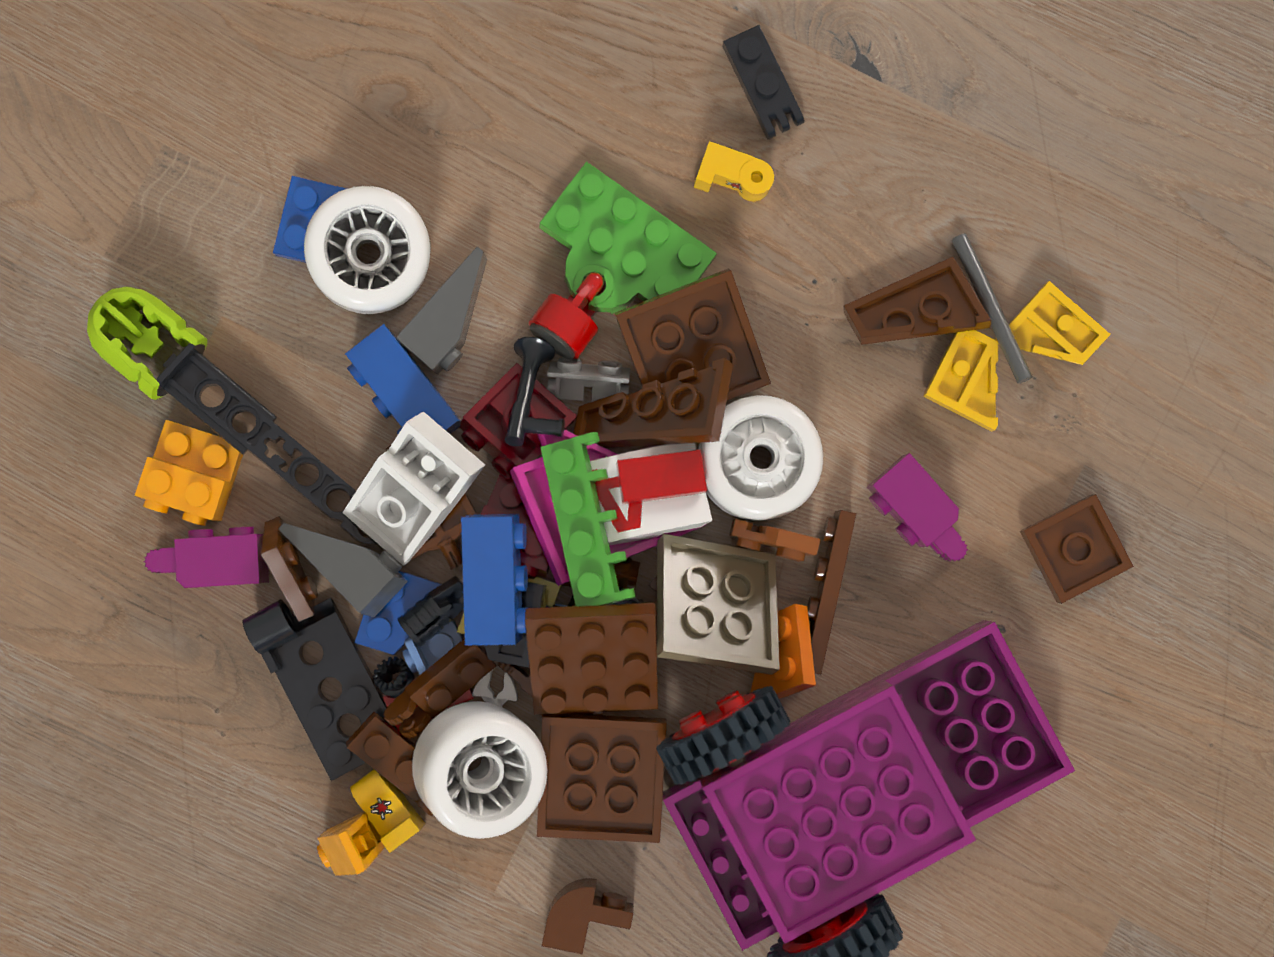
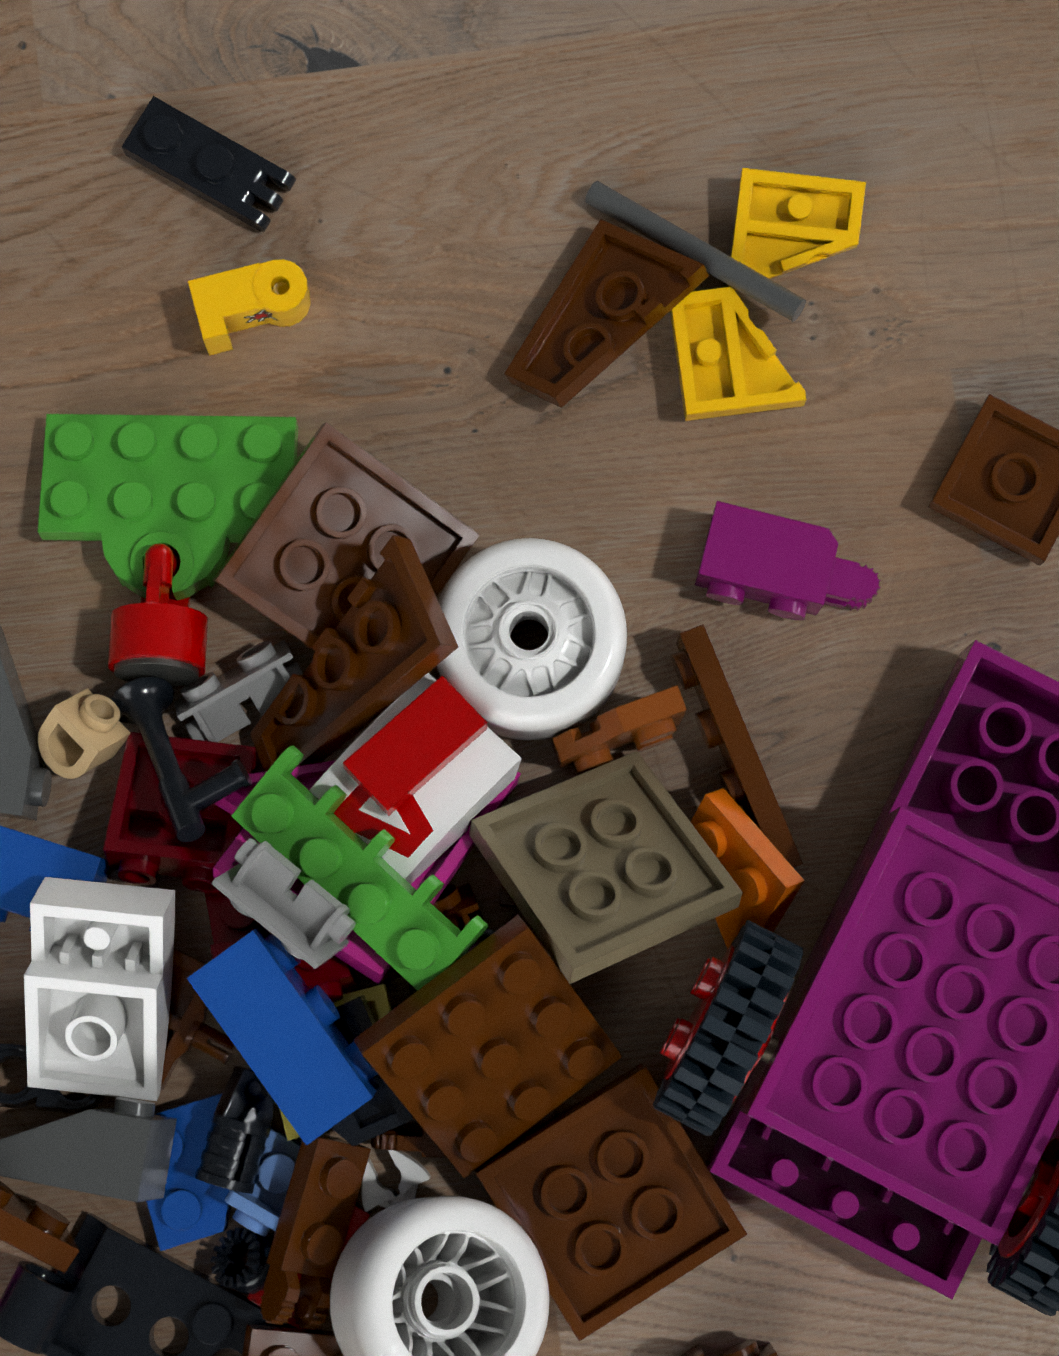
camera: 30 degrees left, 5 degrees down
(491, 347) = (81, 734): none -> tan plate
(541, 533) = (307, 924): none -> light grey hinge

